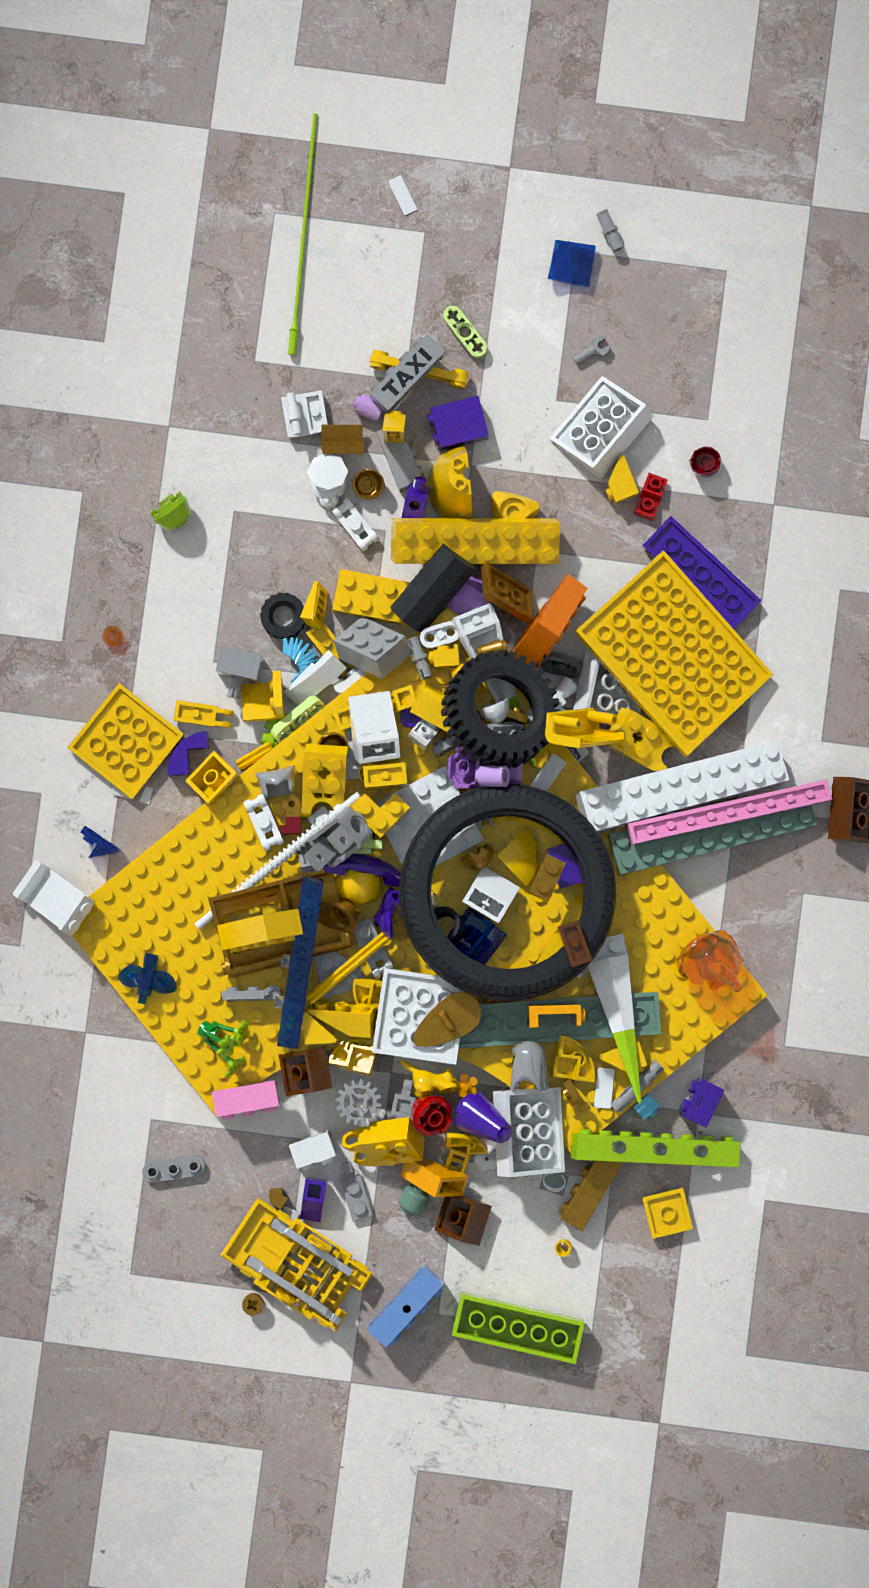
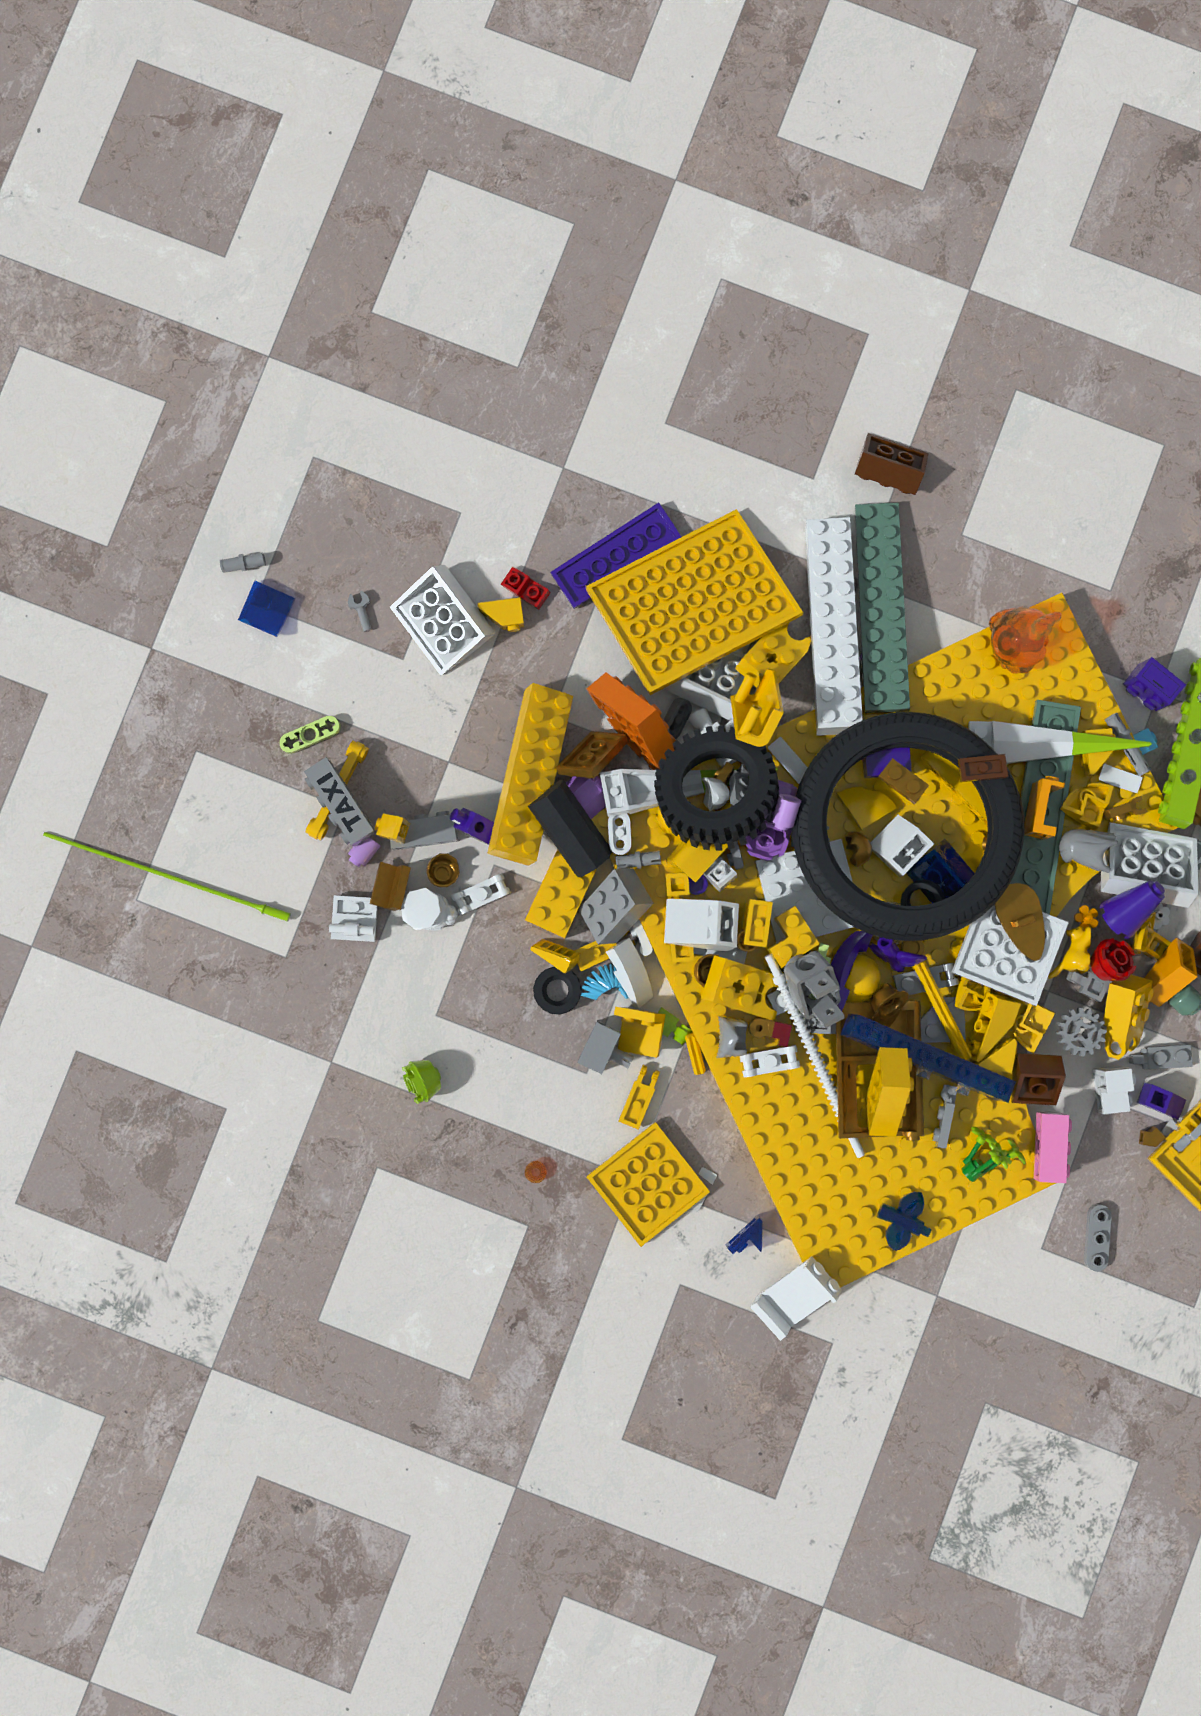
camera: 80 degrees left, 0 degrees up
(179, 760) = (681, 1132): dark purple brick -> none
(212, 777) = (709, 1103): yellow slope -> none
(287, 726) = (664, 995): yellowish green beam -> none
(402, 195) = (152, 764): white sticker -> none
(444, 657) = (644, 833): yellow brick -> none
(449, 488) = (466, 787): yellow cone -> none
(458, 423) = (403, 763): dark purple brick -> none
(495, 646) = (647, 779): pearl gold cone -> none
(513, 506) = (501, 728): yellow hat -> none
(705, 462) = (504, 523): dark red hair -> none
(729, 812) = (870, 585): bright pink plate -> none

